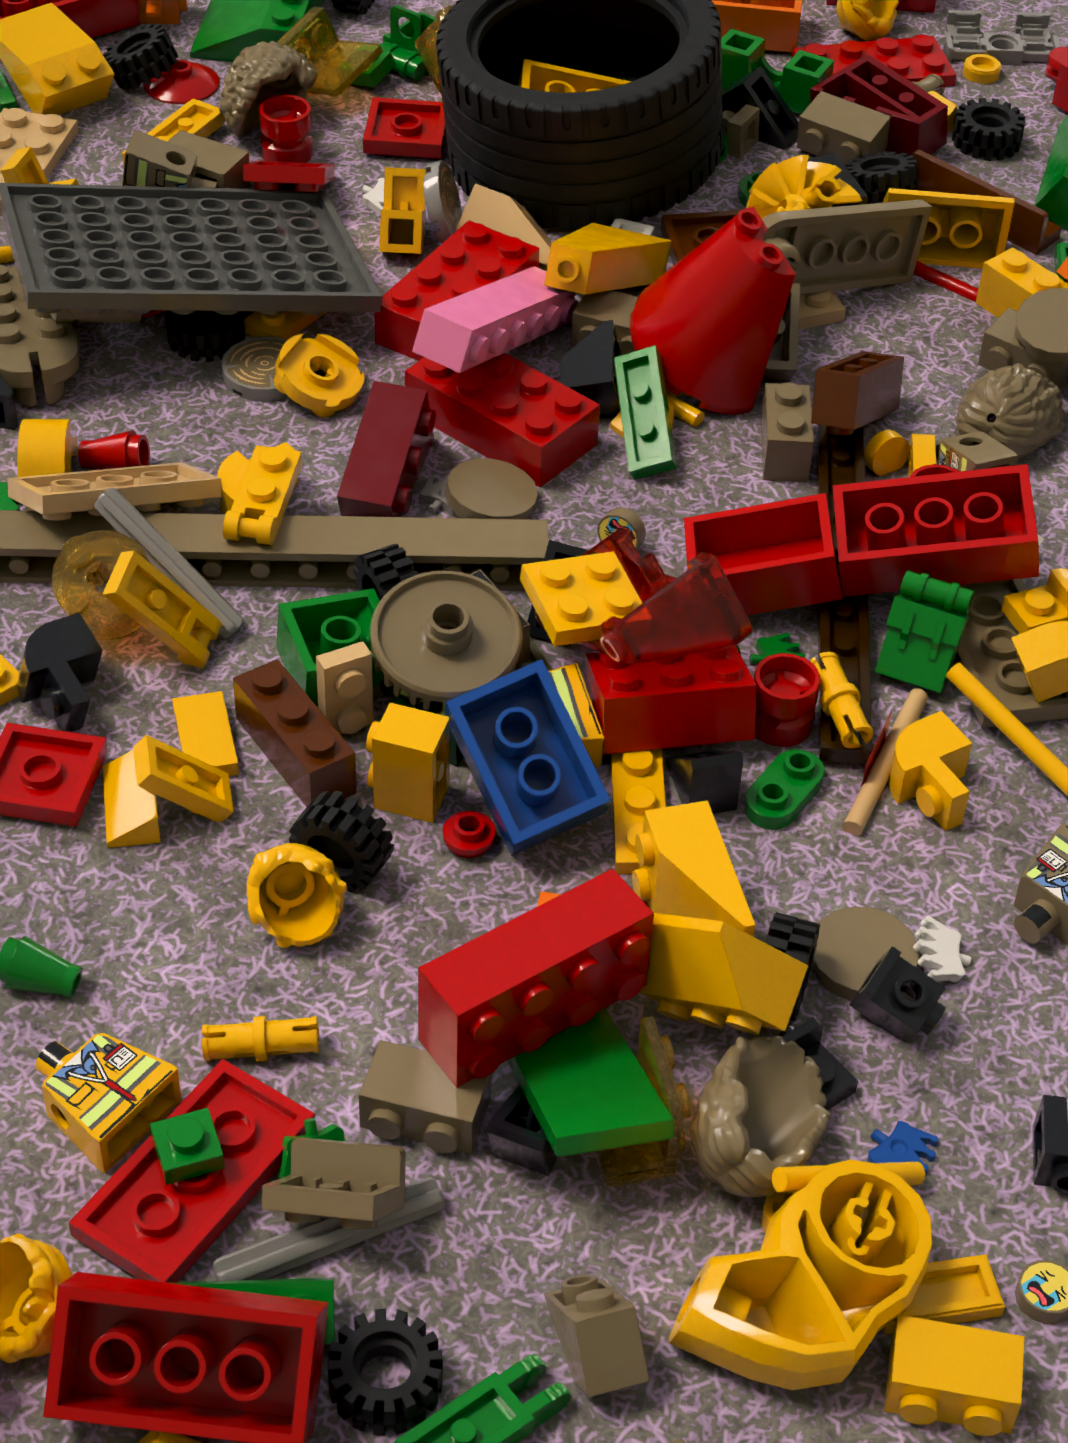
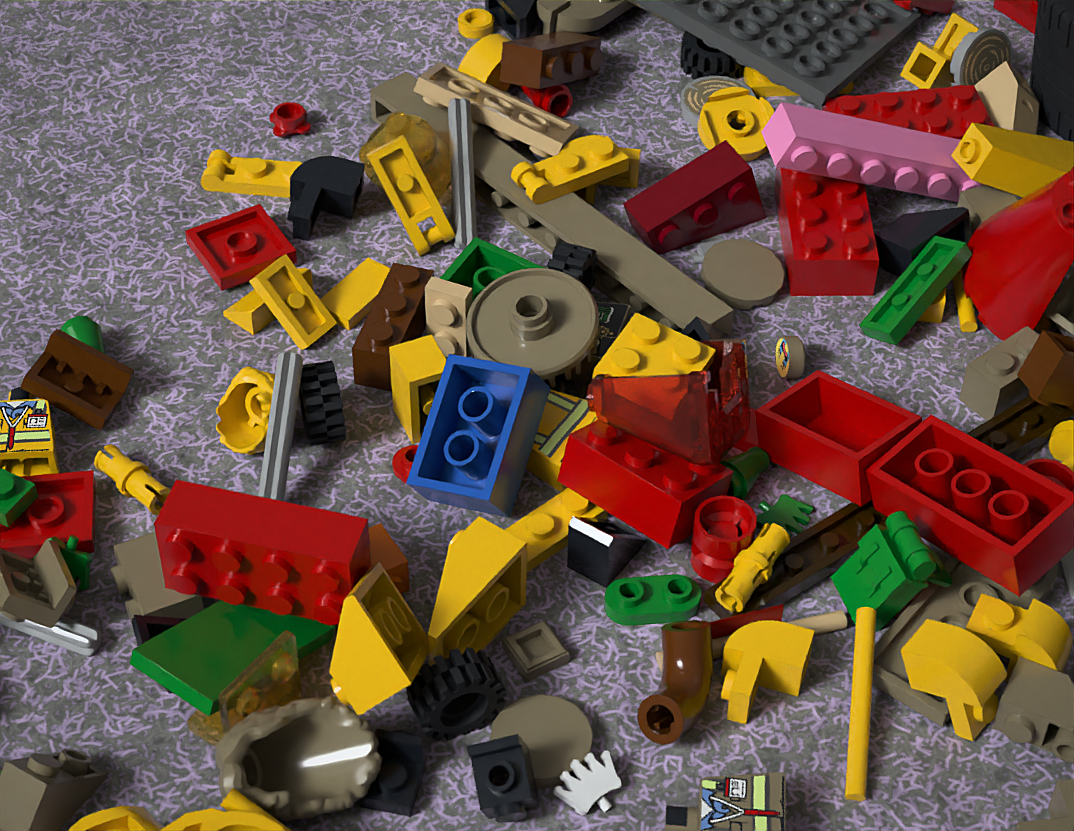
camera: 50 degrees right, 0 degrees up
(90, 995) = (78, 379): none -> reddish brown bracket
(101, 413) = (550, 59): none -> reddish brown brick
(365, 889) = (281, 426): none -> light grey axle
(765, 892) = (535, 650): none -> dark tan tile
(903, 824) = (683, 683): none -> reddish brown cylinder

